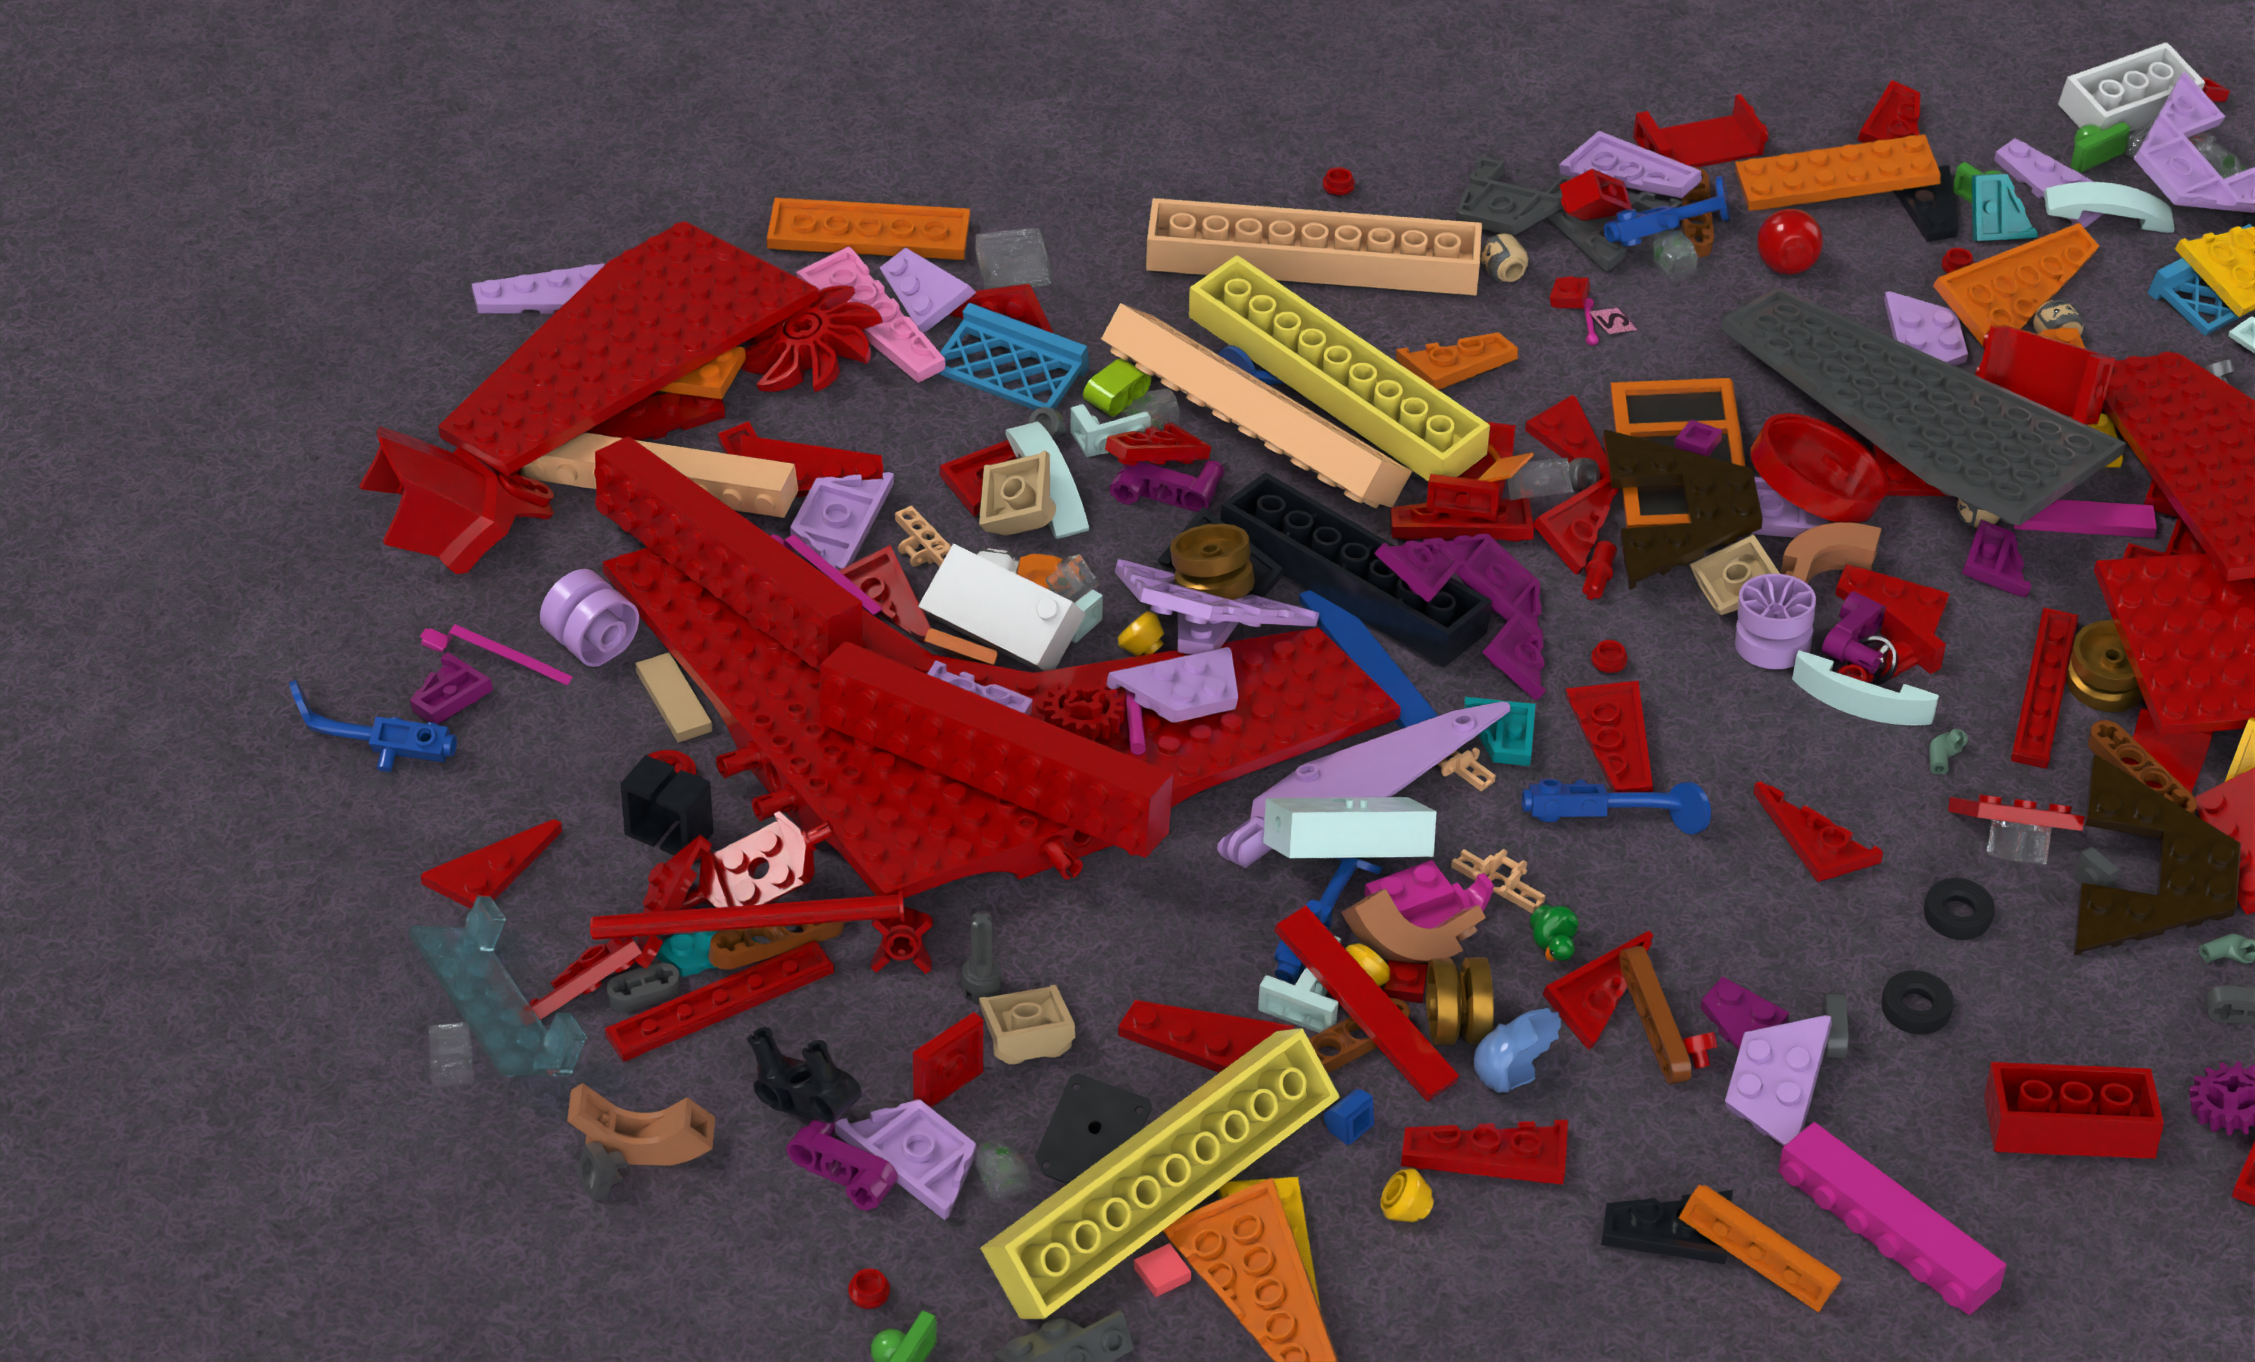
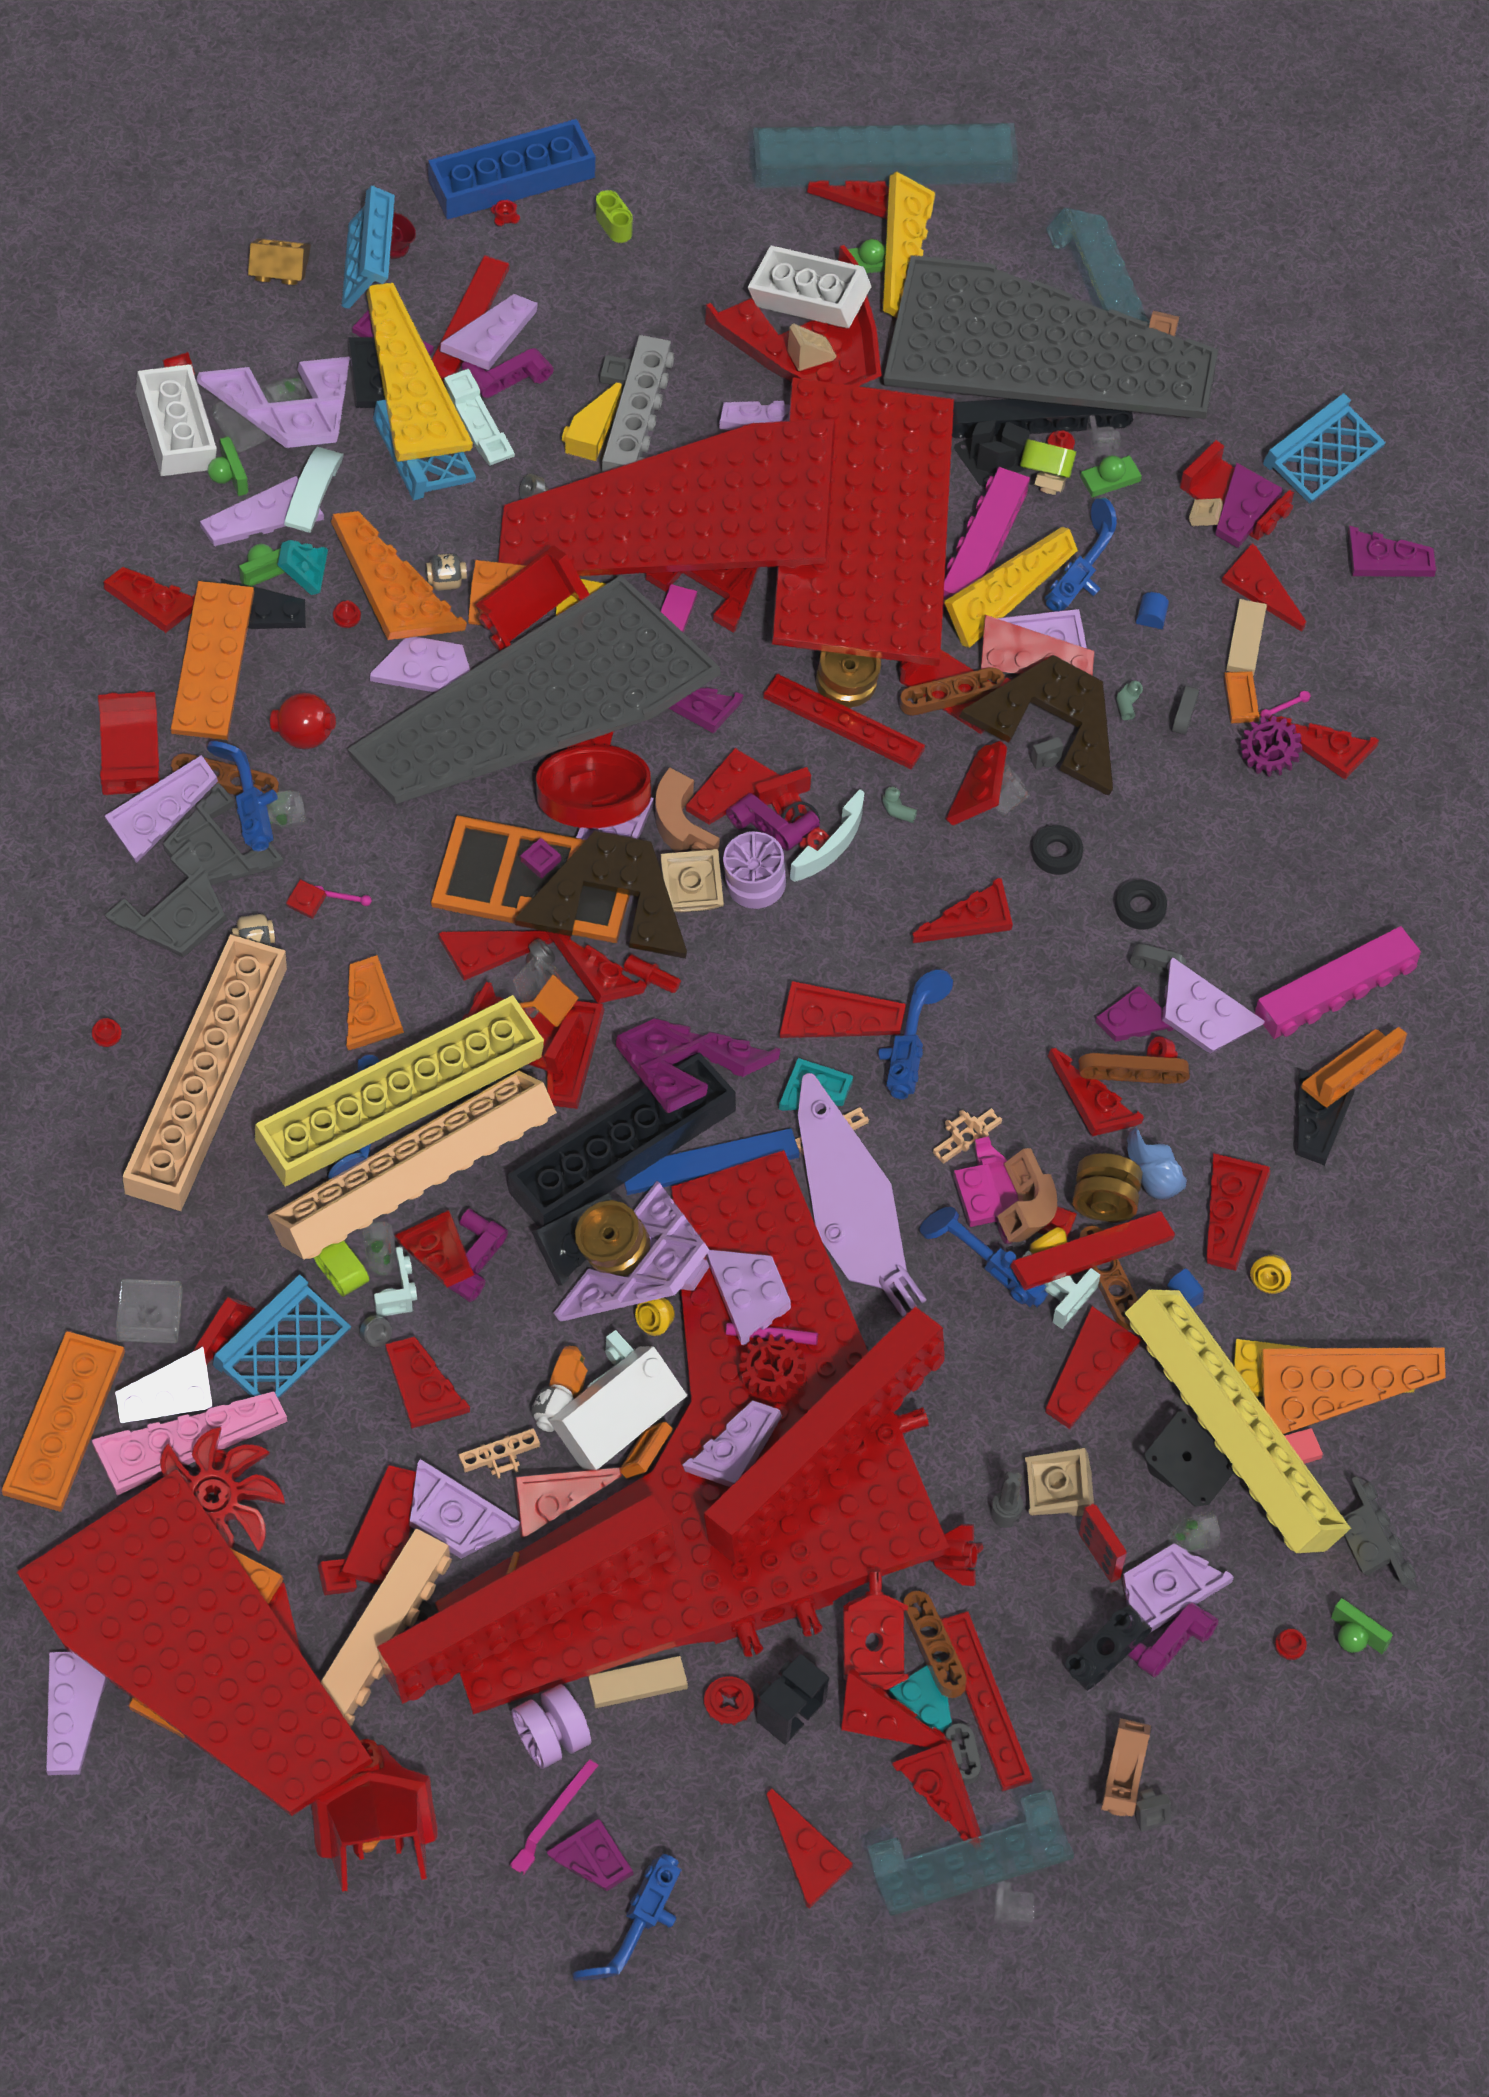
camera: 80 degrees left, 15 degrees up
(748, 917) = (942, 1653): red axle -> none
(794, 542) = (474, 1568): dark pink piece -> none
(1017, 495) = (478, 1366): tan slope -> none
(1069, 514) = (447, 1339): light aqua slope -> none
(1072, 578) = (600, 1349): clear panel -> none
(1349, 827) = (927, 1214): light aqua brick -> none
(1554, 931) = (1031, 1110): green animal -> none
(1594, 196) = (216, 842): red slope -> none
(1609, 656) = (750, 995): red plate -> none
(1613, 320) = (346, 878): clear pink sticker -> none
(2073, 1110) = (1267, 843): red brick -> none

